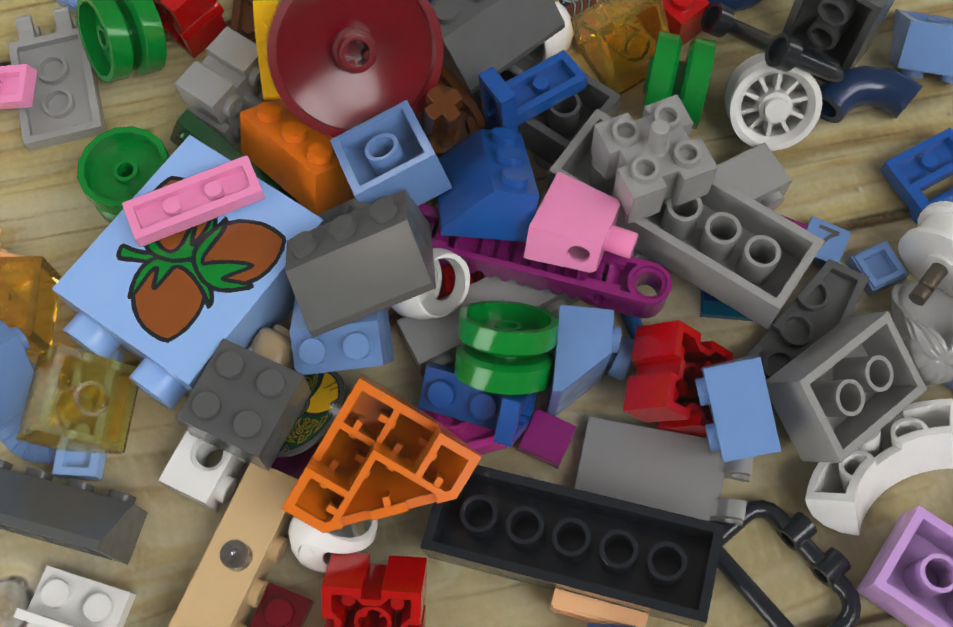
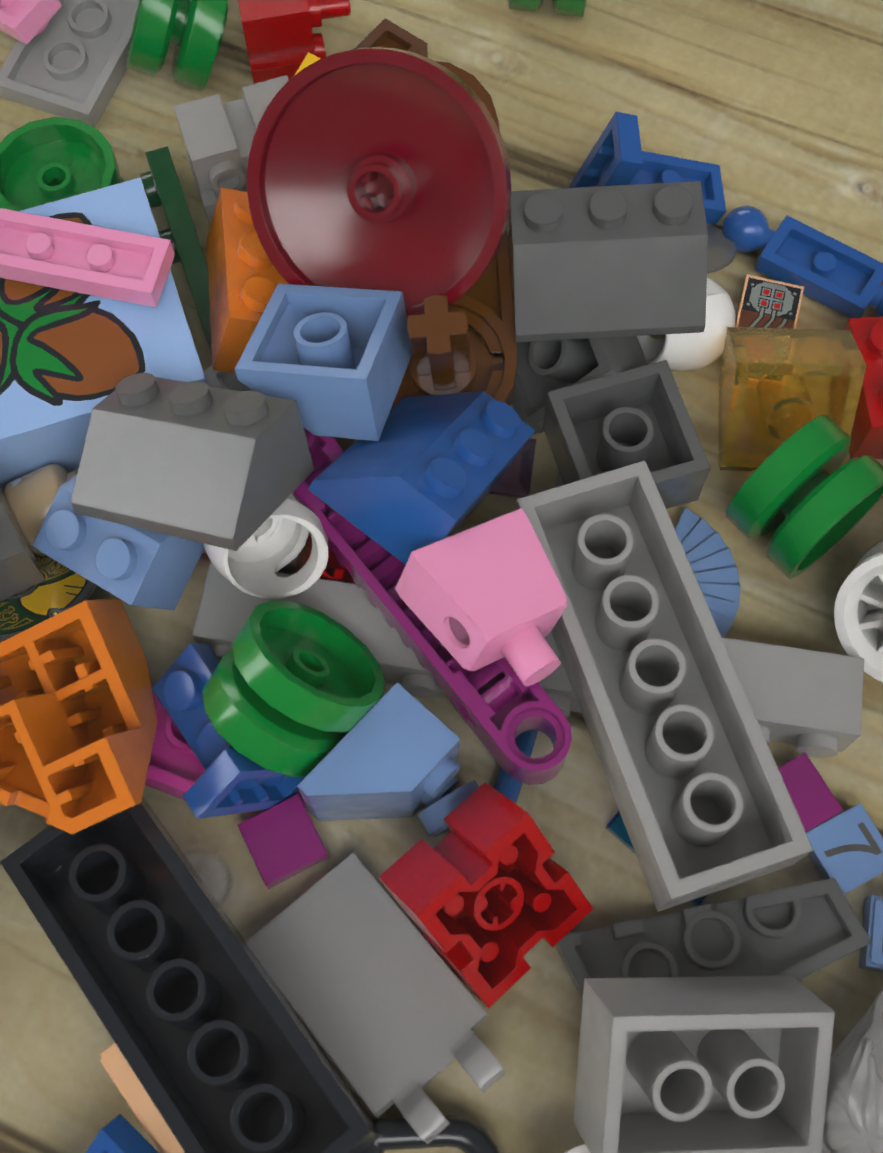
camera: 35 degrees right, 0 degrees up
(530, 92) = (588, 385): blue bracket -> none
(652, 158) = (652, 574): light grey brick -> none
(739, 409) = (522, 989): medium blue slope -> none

